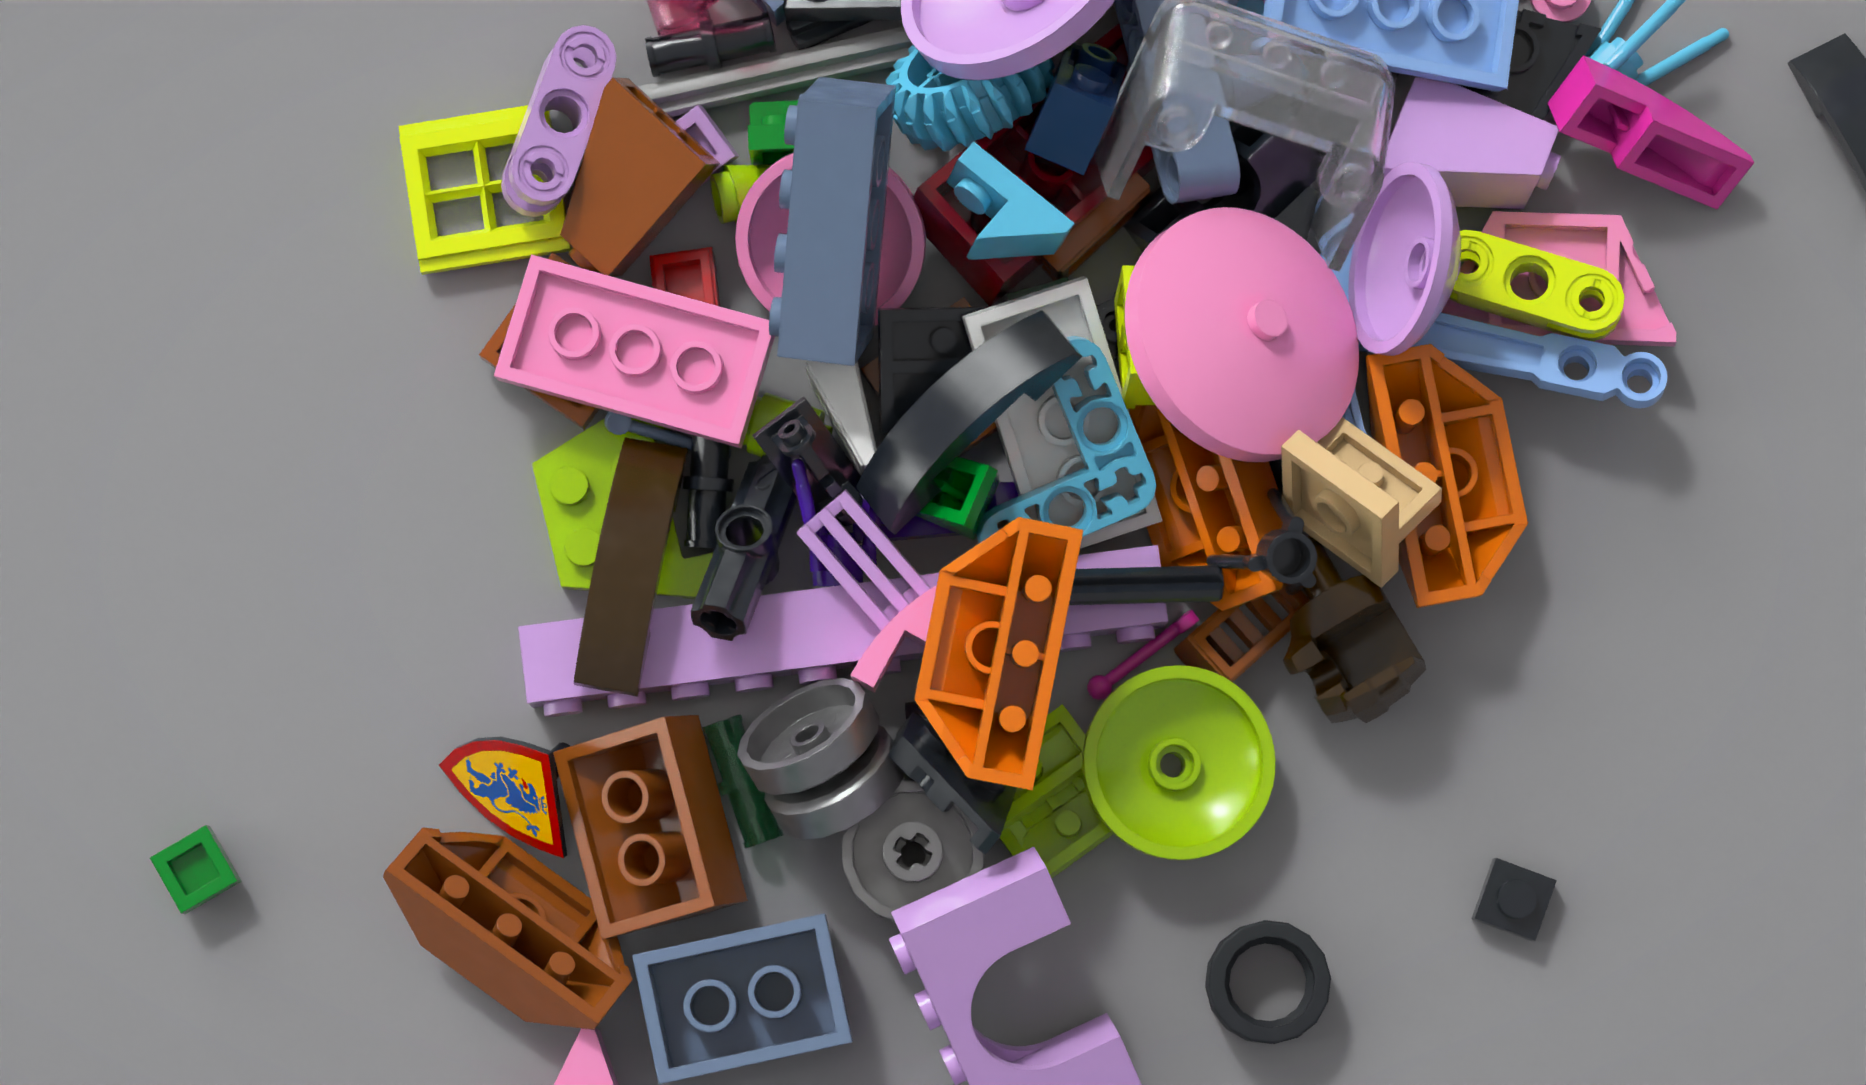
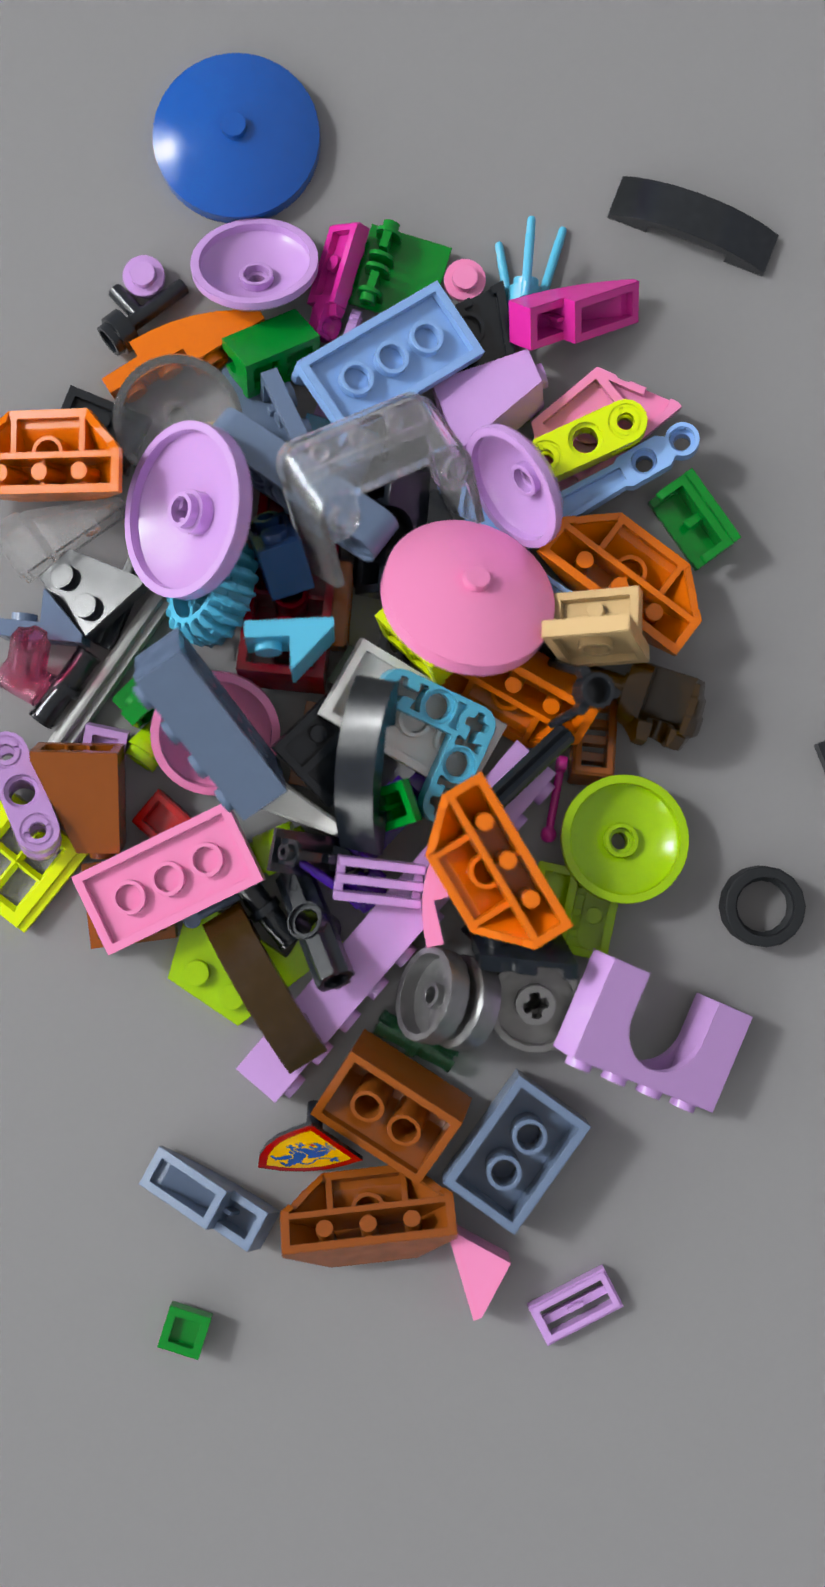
camera: 40 degrees left, 5 degrees up
(355, 749) = (209, 1199): none -> sand blue slope
(1579, 482) = (694, 519): none -> green hinge

